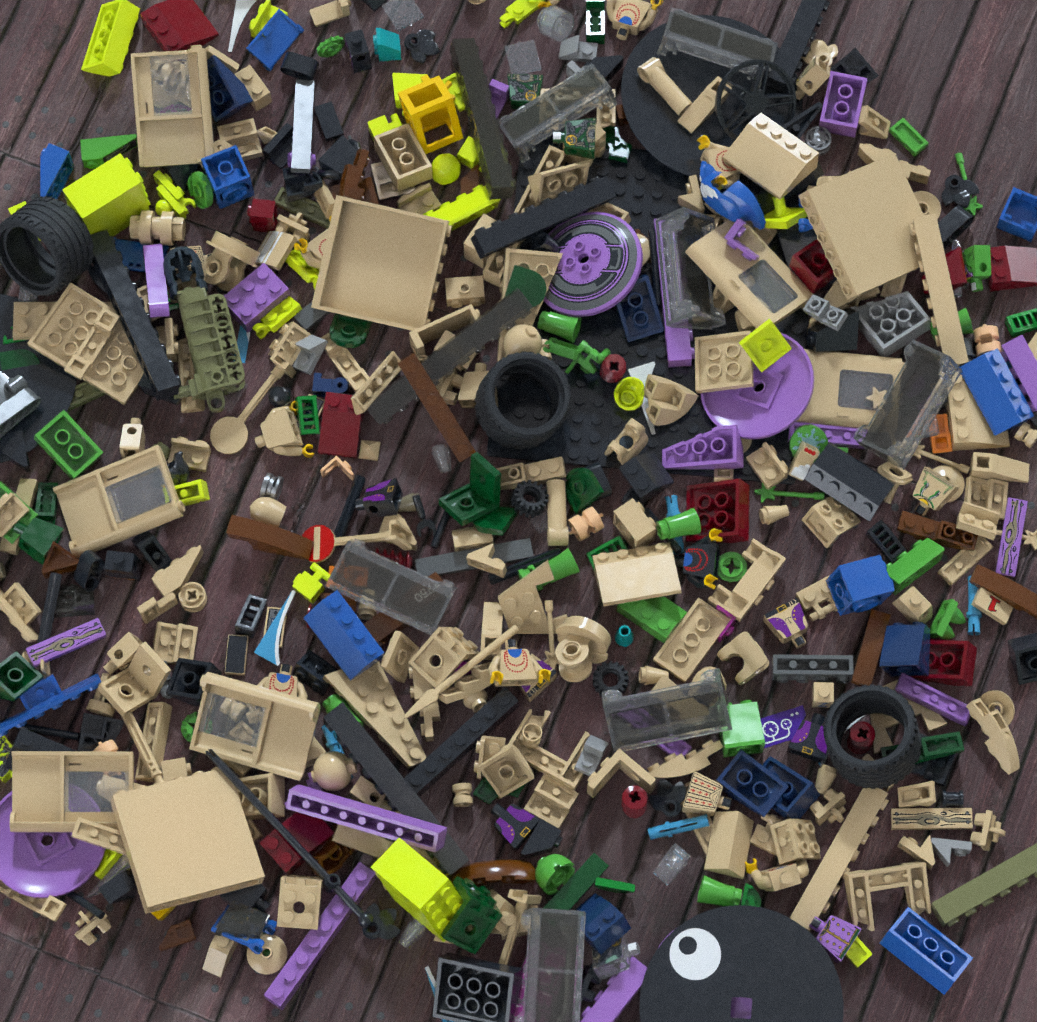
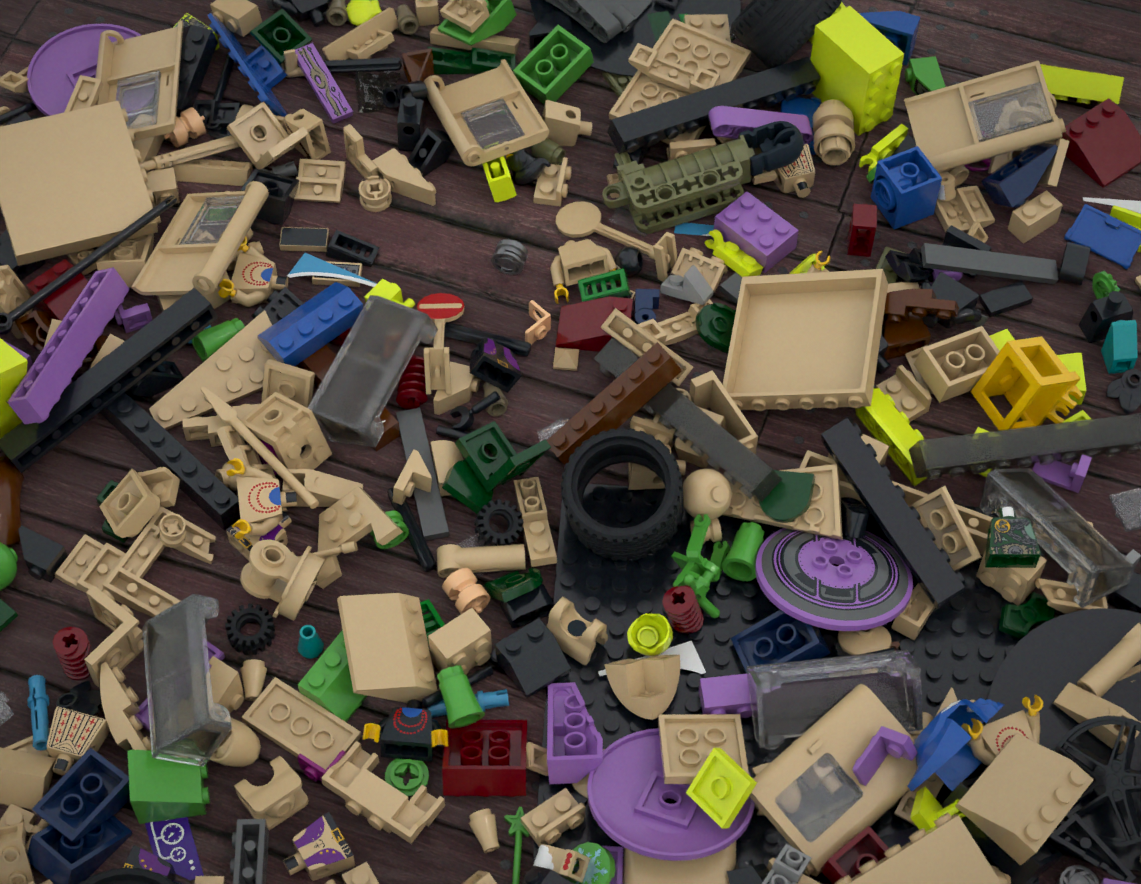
camera: 85 degrees right, 15 degrees down
(38, 537) = (443, 41): dark green torso -> none
(168, 203) = (863, 144): neon yellow tile -> none
(228, 261) = (800, 194): tan piece -> none
(267, 511) = (476, 249): tan piece -> none
(269, 538) = (442, 253): reddish brown slope -> none
(275, 249) = (813, 243): tan slope -> none
(293, 224) = (855, 258): tan hips -> none
(333, 770) = (136, 315): tan brick -> none
(445, 169) = (957, 420): neon yellow hair -> none
(462, 795) = (111, 465): tan wheel -> none
(465, 291) = (786, 444): tan brick -> none
(514, 824) = (64, 521): torso -> none
(523, 88) = (1091, 502): torso -> none
(563, 566) = (406, 564): bright green plant -> none
(591, 755) = (143, 602): light grey slope -> none

